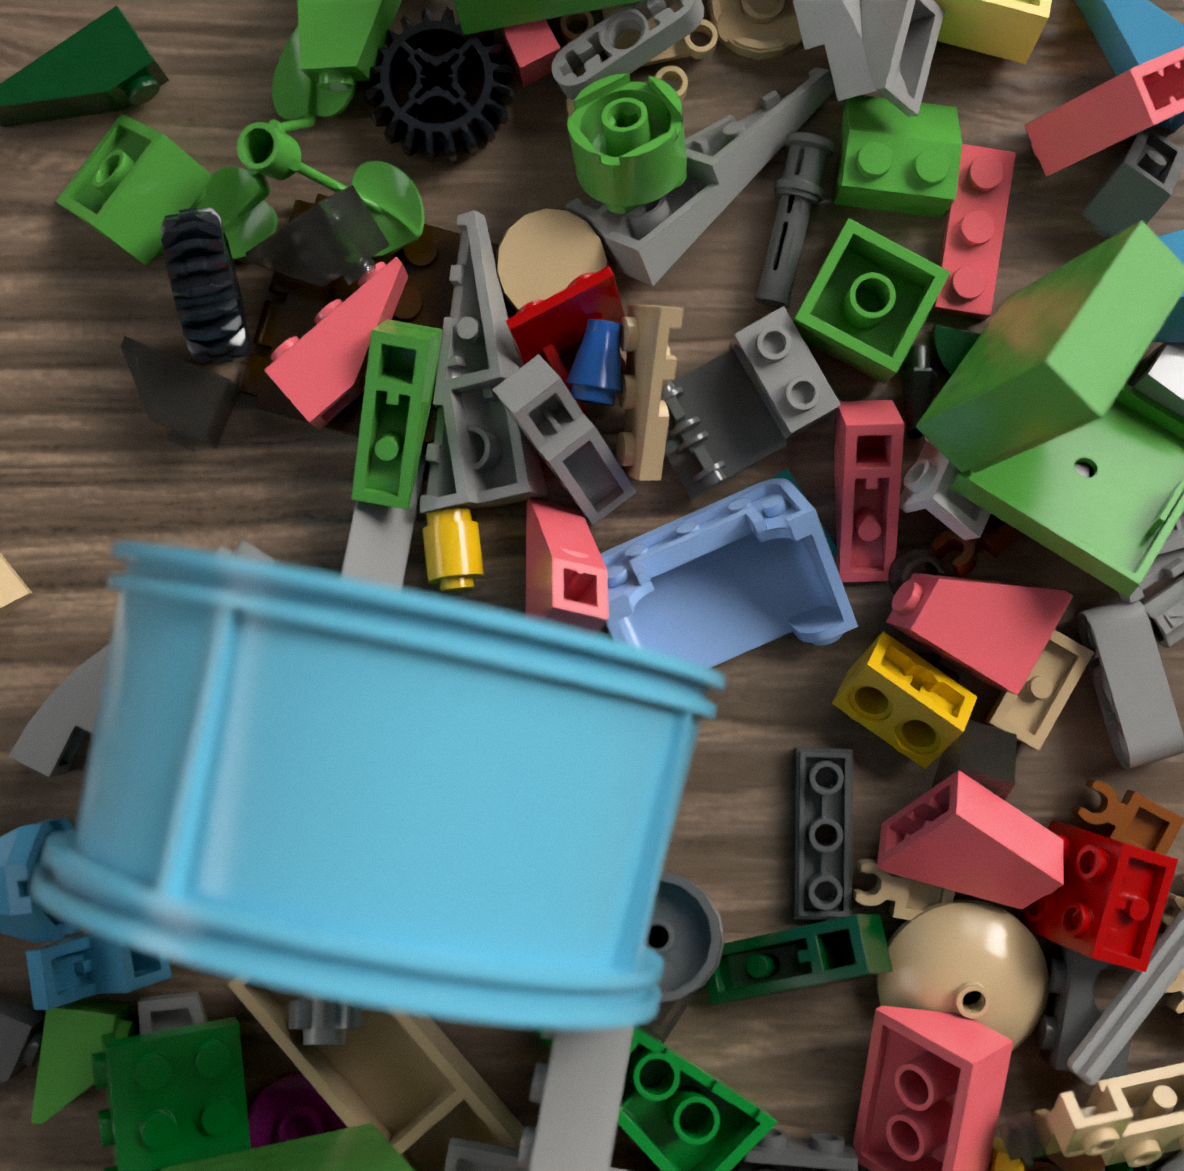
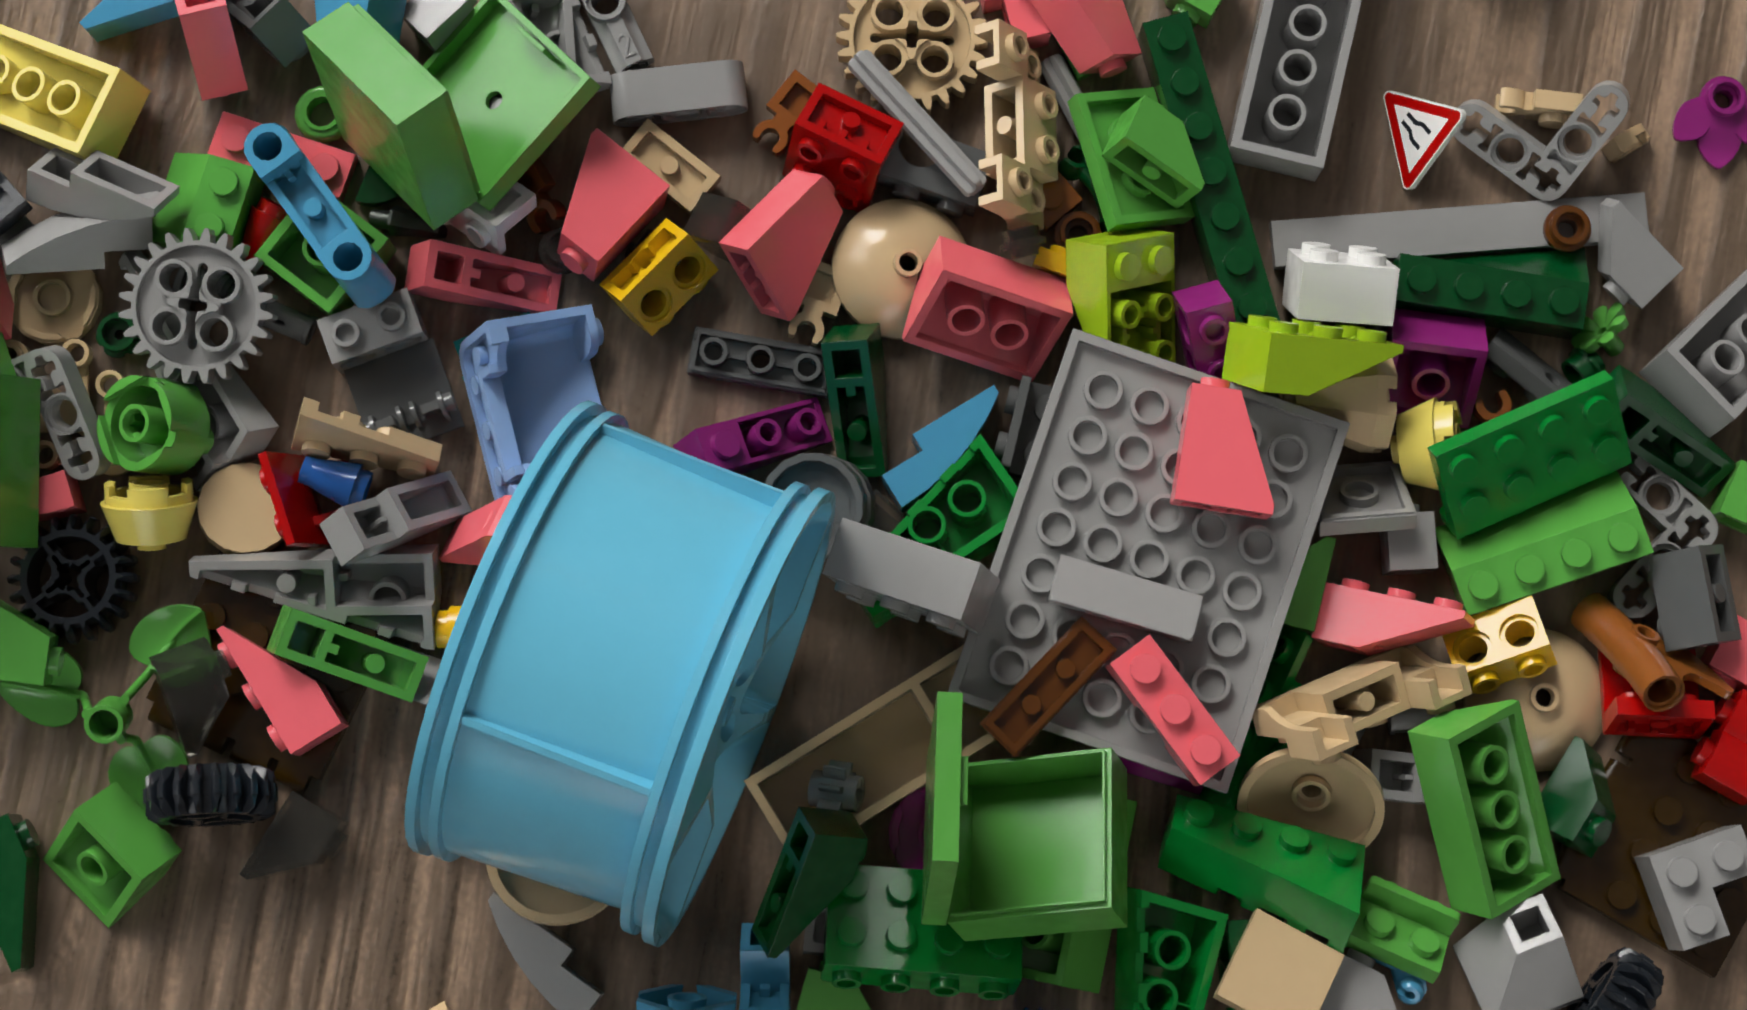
camera: 85 degrees left, 5 degrees down
(220, 1016) = (809, 874): none -> dark green slope
(528, 155) = (149, 511): none -> light yellow cone
(729, 844) = (759, 437): none -> magenta slope
(733, 69) = (107, 338): none -> dark green plate
(752, 1067) = (938, 448): none -> dark azure slope
(775, 112) = (155, 301): none -> light grey gear
(888, 220) = (261, 223): none -> red cone
(911, 284) = (318, 215): none -> dark azure plate
(1031, 245) = (302, 116): none -> bright green piece

